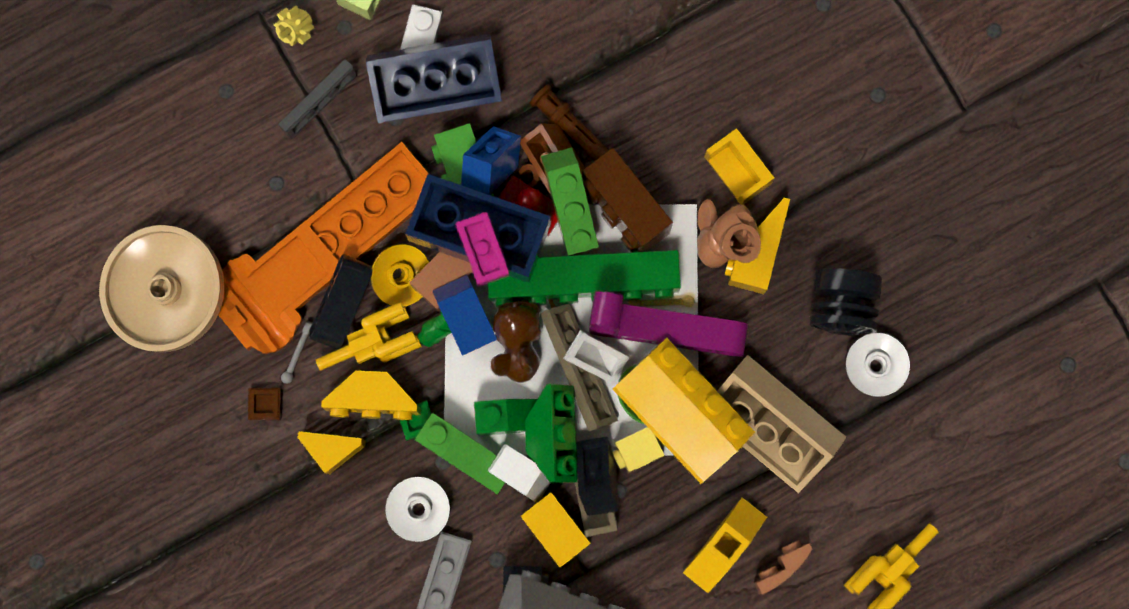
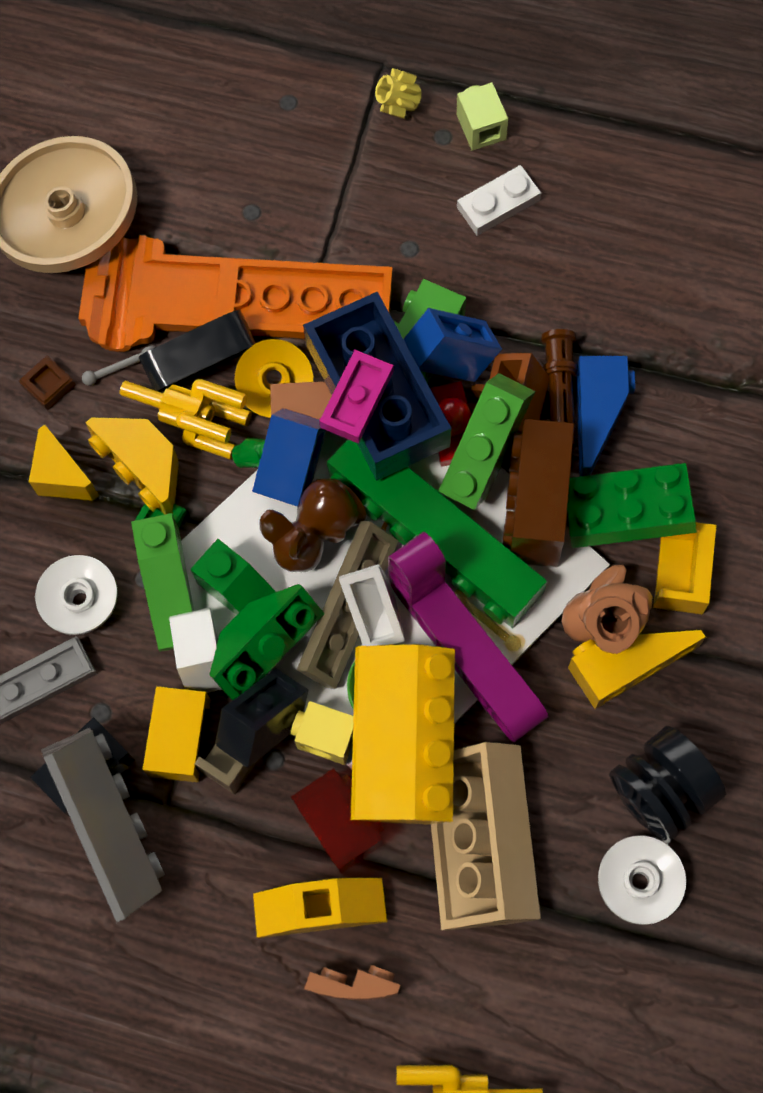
camera: 45 degrees right, 10 degrees down
(318, 99) = (356, 170): dark grey tile -> none
(433, 78) = (474, 234): dark blue brick -> none
(600, 111) = (601, 397): none -> blue slope
(680, 159) = (630, 505): none -> green plate
(682, 491) = (327, 811): none -> clear red brick

